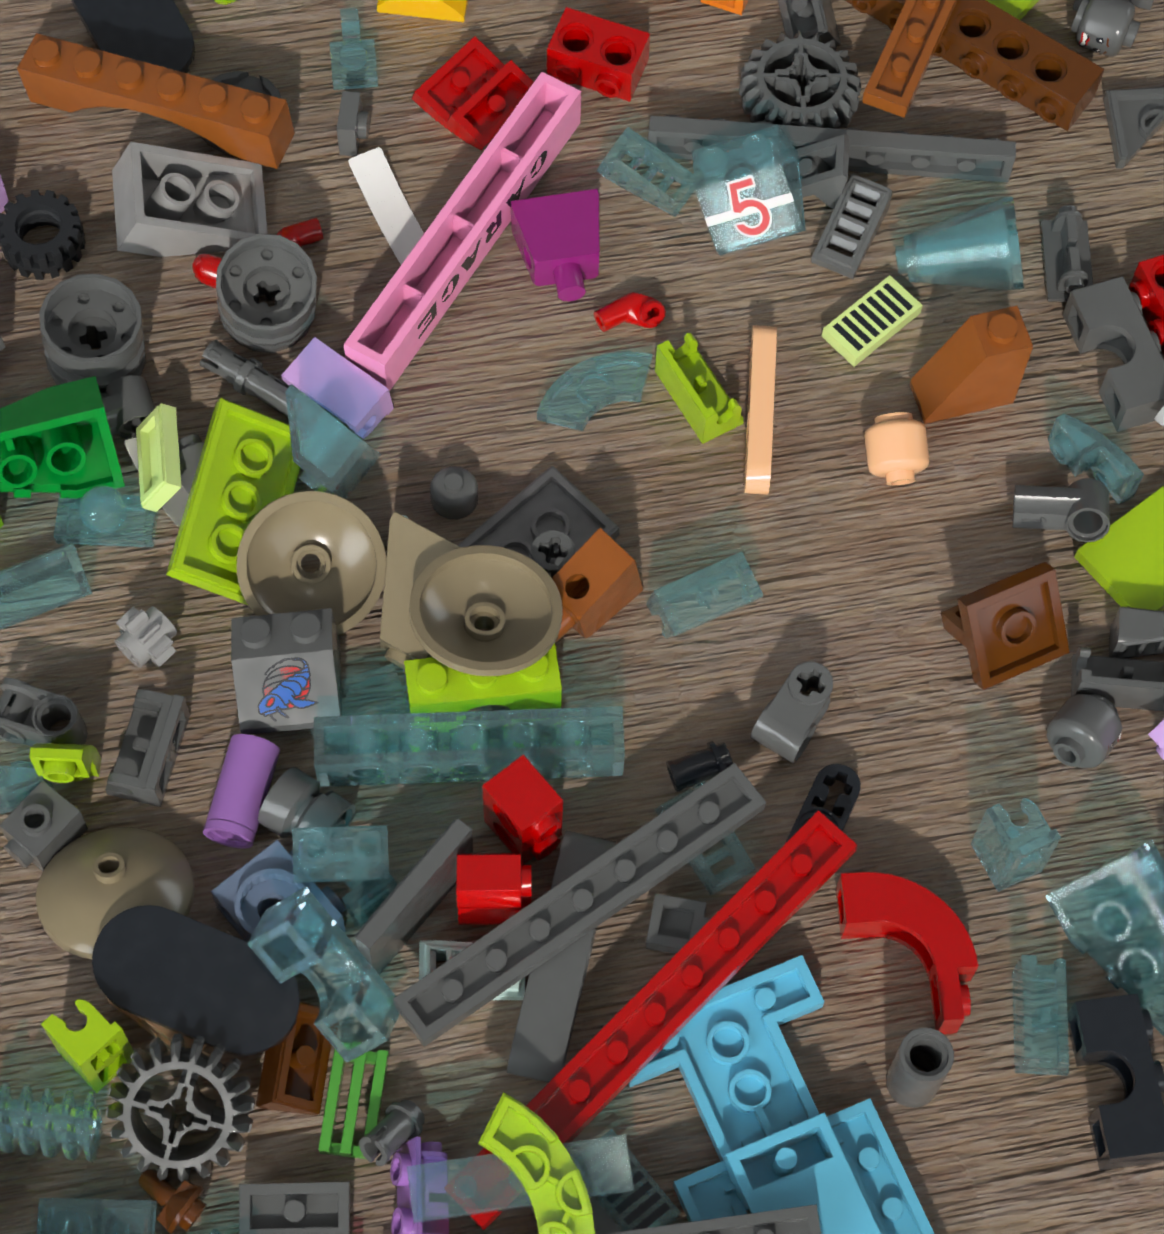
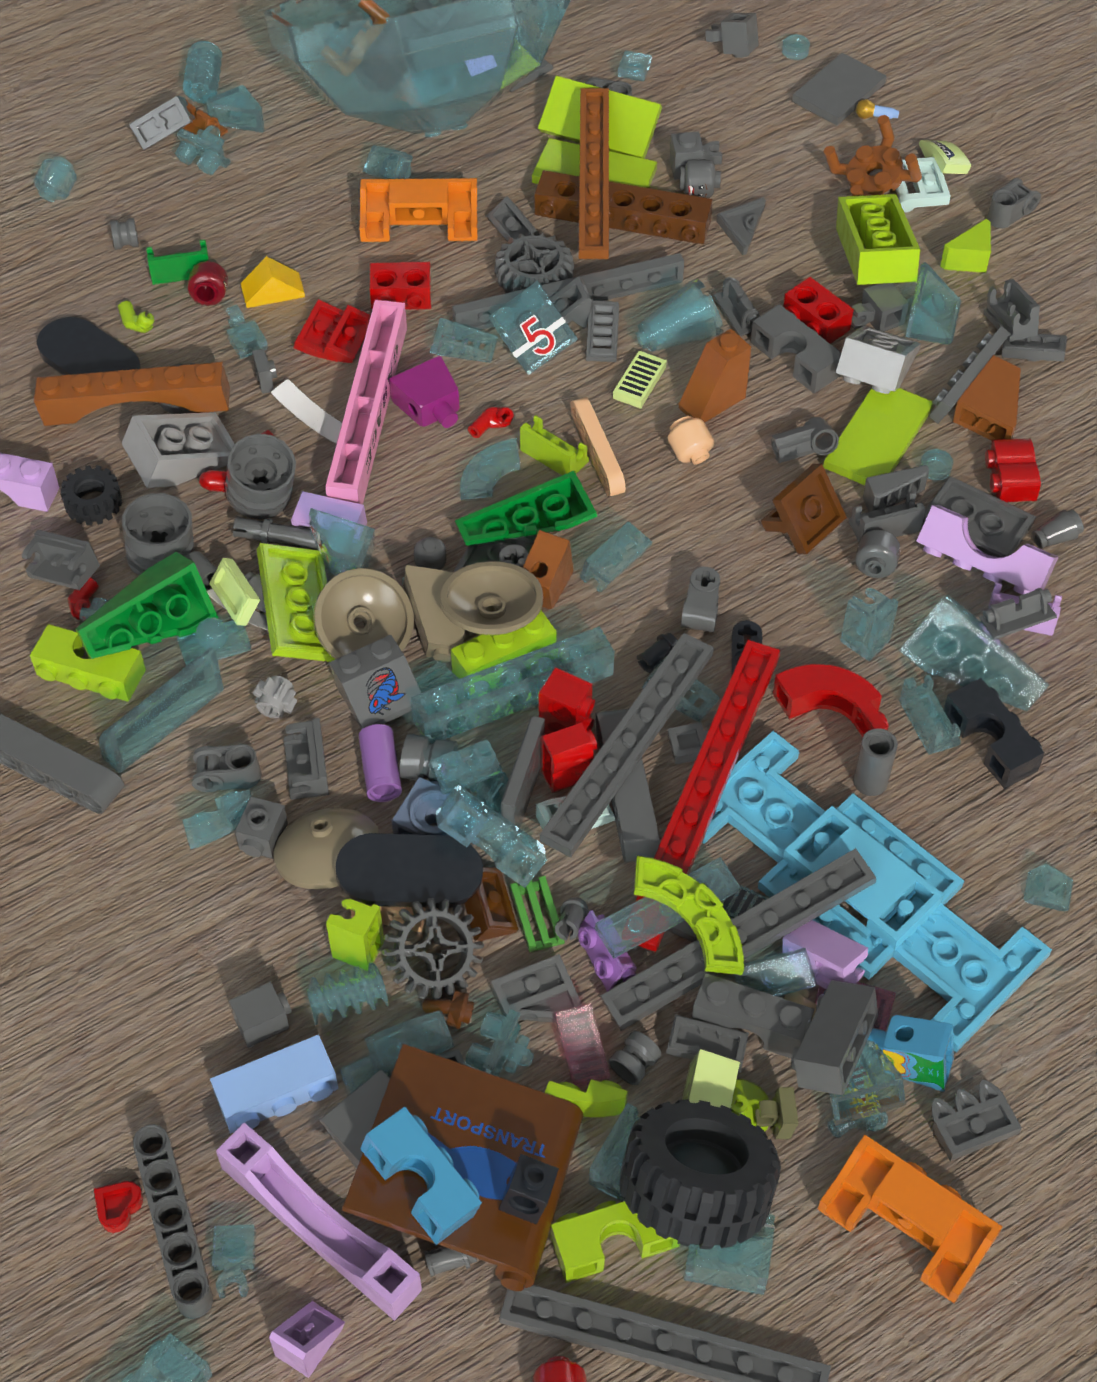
camera: 20 degrees left, 10 degrees down
(65, 761) = (261, 780): lime slope -> none
(623, 489) = (546, 507): none -> green wedge
(1086, 448) = (804, 404): clear light blue slope -> none

